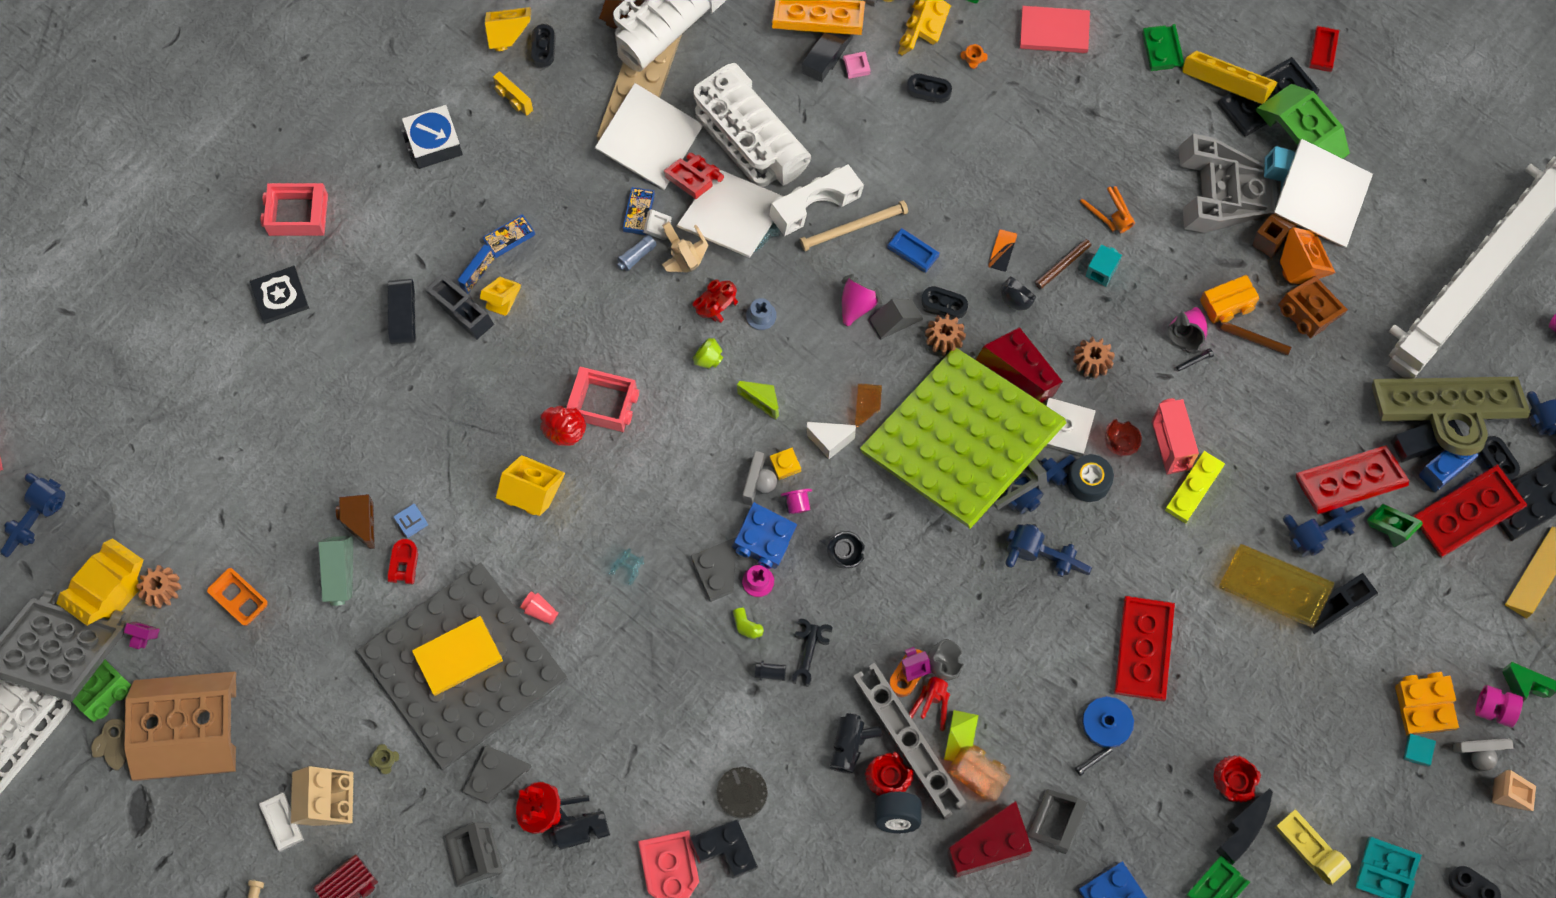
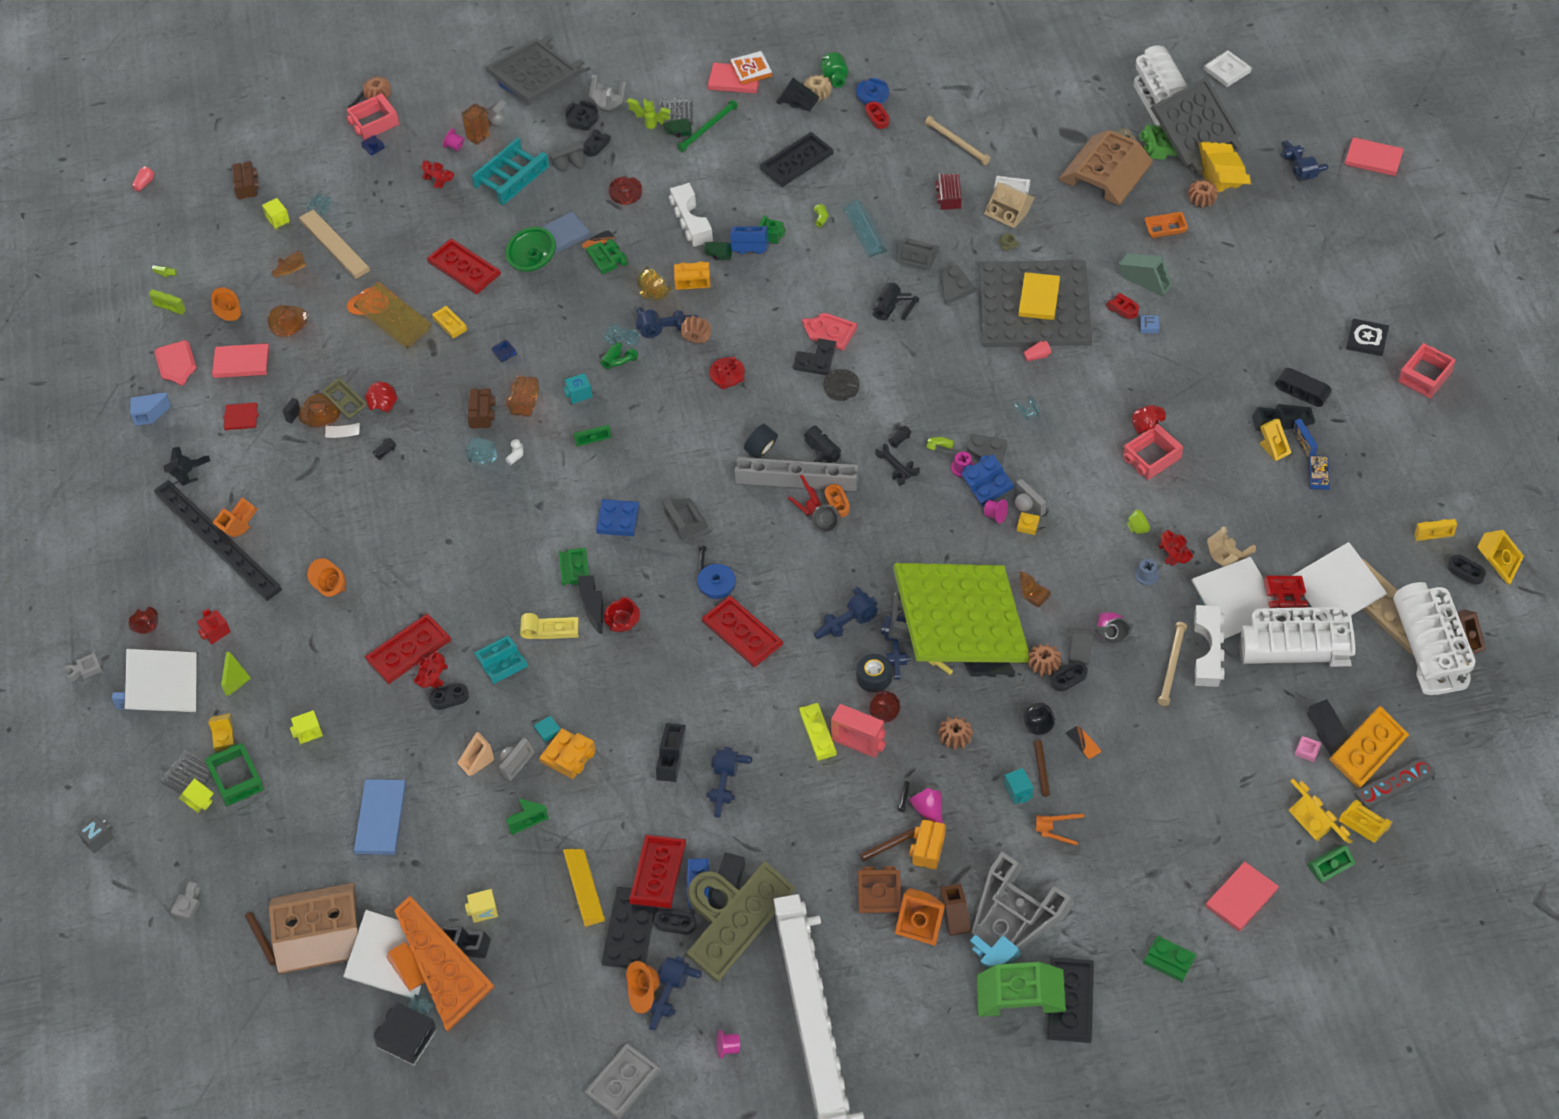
camera: 130 degrees right, 15 degrees down
(141, 634) = (1180, 174): magenta tile -> none
(358, 517) = (1169, 298): reddish brown slope -> none
(431, 137) = (1431, 467): piece -> none
(529, 485) = (1123, 387): yellow slope -> none
(543, 816) = (916, 287): red plate -> none
(635, 253) = (1249, 530): sand blue piece -> none
(638, 206) = (1283, 551): tile -> none
(654, 224) = (1263, 553): white tile -> none
(761, 396) = (1084, 535): lime slope -> none
(830, 437) = (1025, 552): white slope -> none
(846, 549) = (940, 512): black hair -> none
(888, 774) = (785, 447): red hair -> none
(913, 250) = (1125, 687): blue tile -> none
(915, 664) = (838, 497): magenta tile -> none
(930, 86) = (1248, 777): black plate -> none
(960, 734) = (777, 504): lime slope -> none
(975, 50) = (1258, 821): orange plate -> none
(979, 773) = (745, 491): clear orange brick -> none
(991, 844) = (701, 475): dark red wedge -> none
(1021, 364) = (983, 682): dark red wedge -> none
(1075, 432) = (922, 687): white plate -> none
(1229, 77) = (1107, 977): yellow slope -> none
(1276, 585) = (713, 721): clear yellow tile -> none
(1323, 193) = (957, 959): white piece -> none
(1324, 48) = (1081, 1072): red tile -> none
(1352, 479) = (741, 819): red tile -> none
(1394, 523) = (689, 817): green slope -> none
(1508, 706) = (529, 785): dark pink wheel -> none

